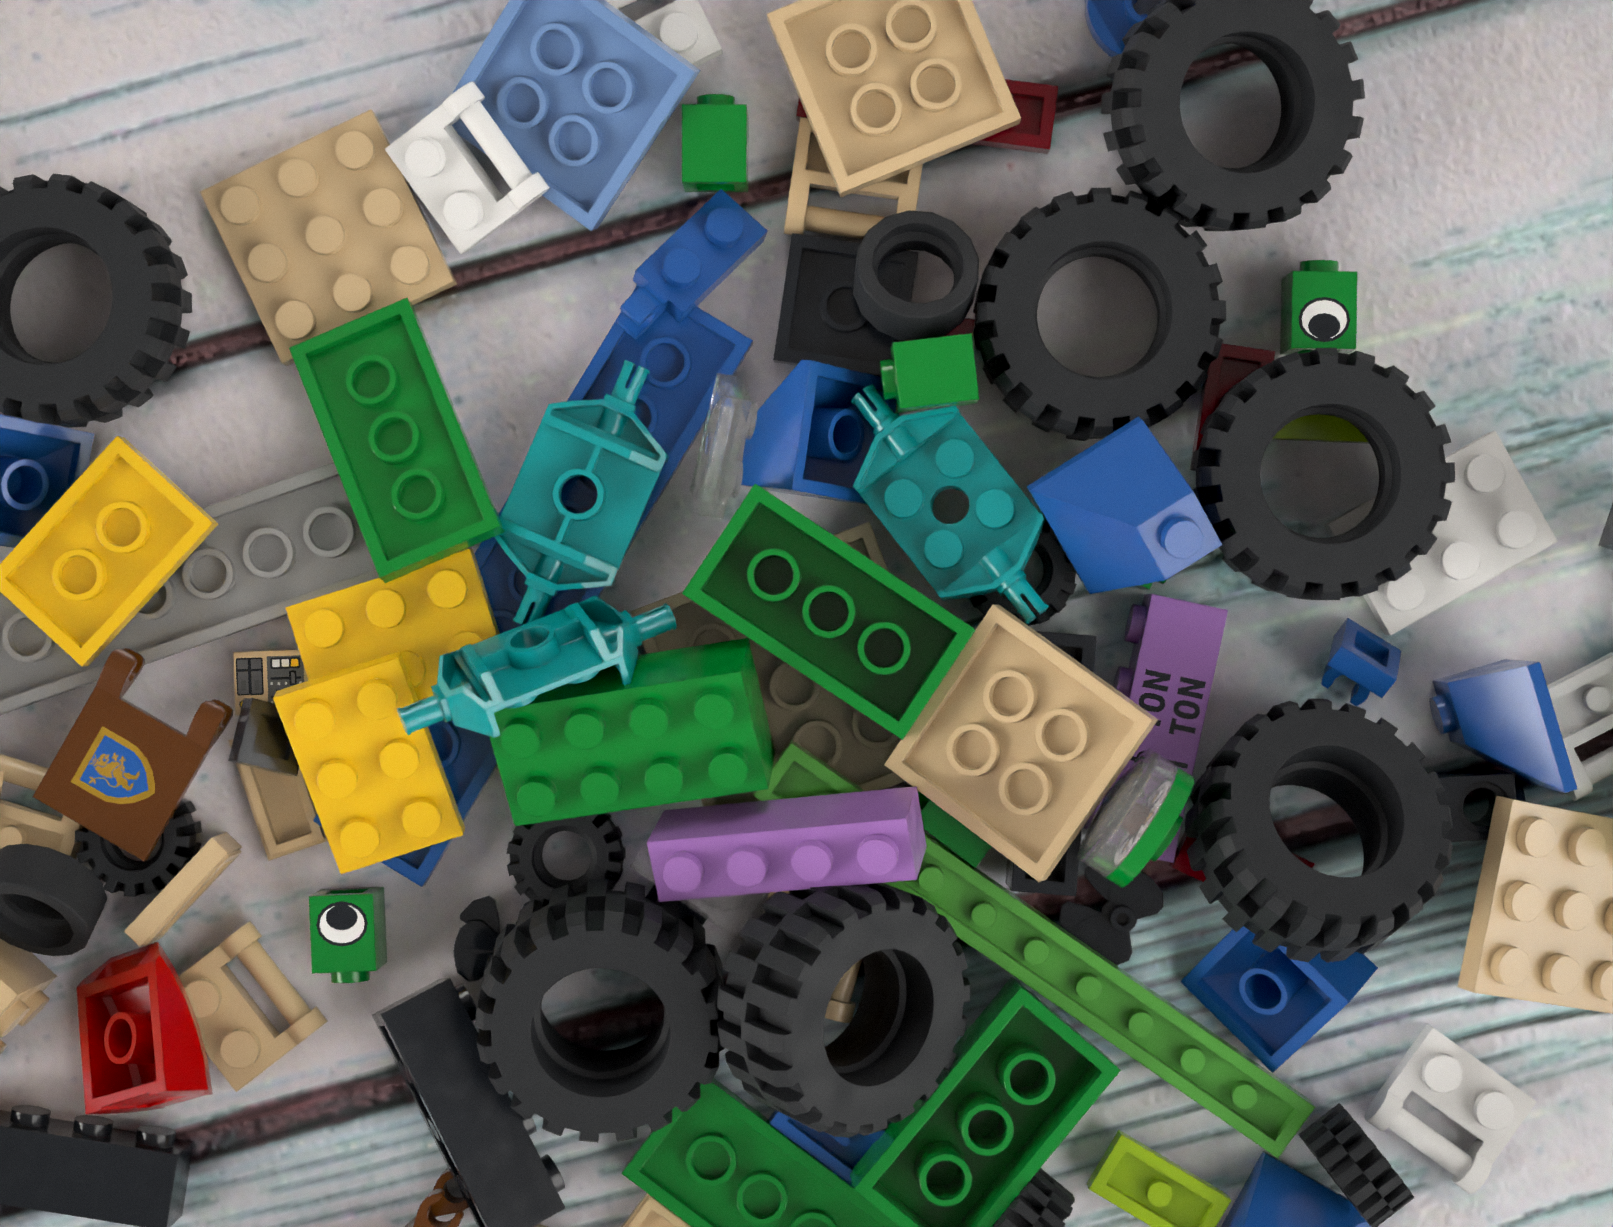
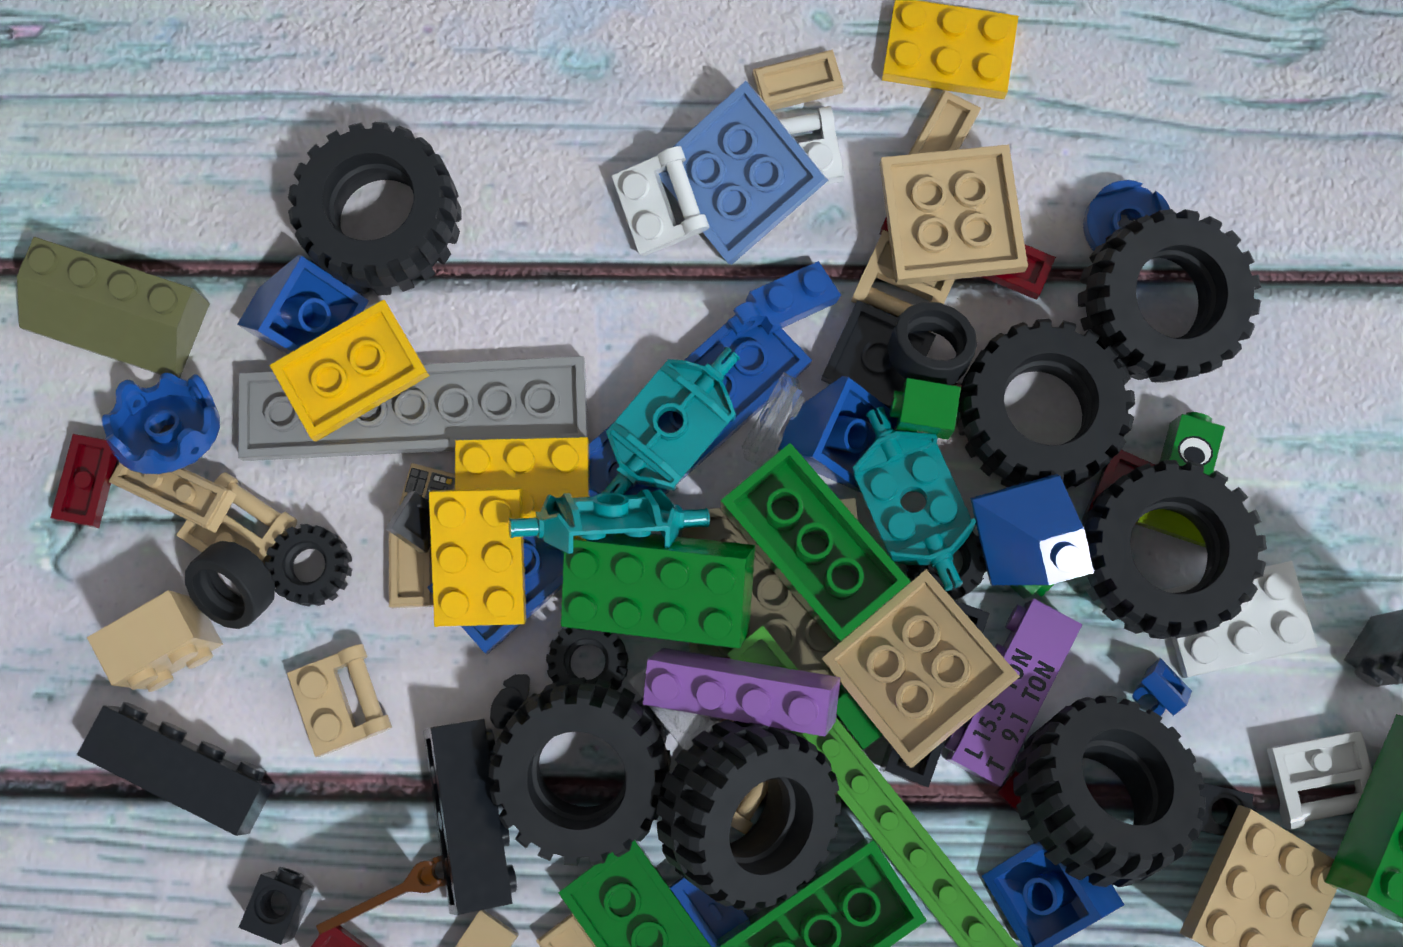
camera: 20 degrees right, 10 degrees down
(125, 767) = (316, 513): reddish brown flag -> none
(139, 1036) = (263, 699): red slope -> none
(184, 889) = (326, 608): tan tile -> none
(327, 234) = (557, 222): tan plate -> none
(348, 933) = (425, 670): green brick -> none
(396, 440) = (562, 355): green plate -> none
(715, 144) = (823, 232): green brick -> none
(1109, 929) = (961, 806): black piece -> none
(1136, 818) = (986, 742): clear piece -> none
(1506, 720) = (1256, 758): blue slope -> none

